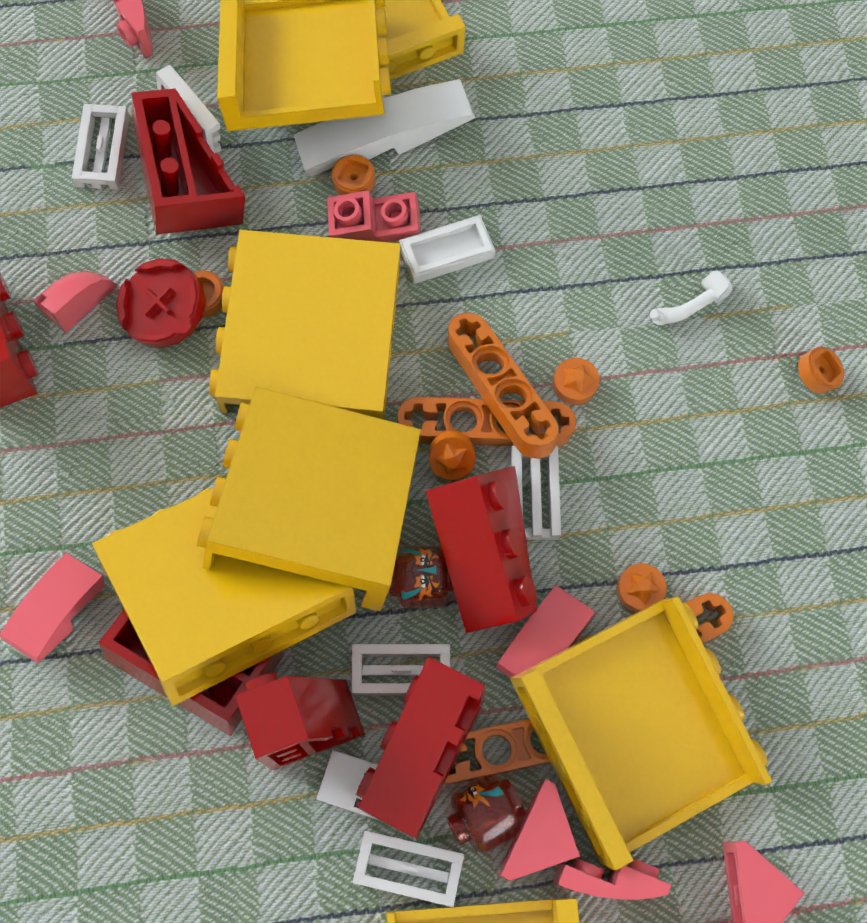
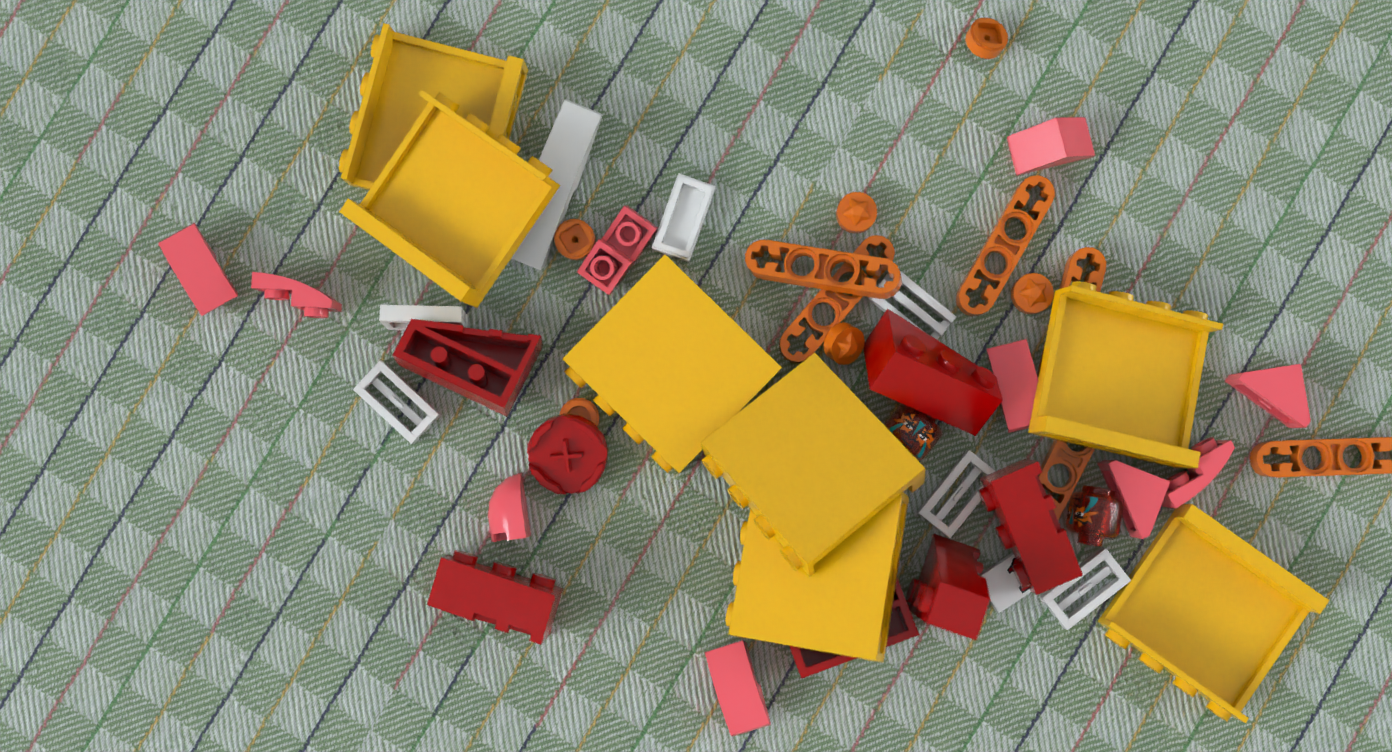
camera: 40 degrees left, 15 degrees up
(660, 525) = (1002, 244): none -> orange beam
(717, 289) = (866, 52): white piece -> none
(786, 497) = (1050, 144): none -> coral slope

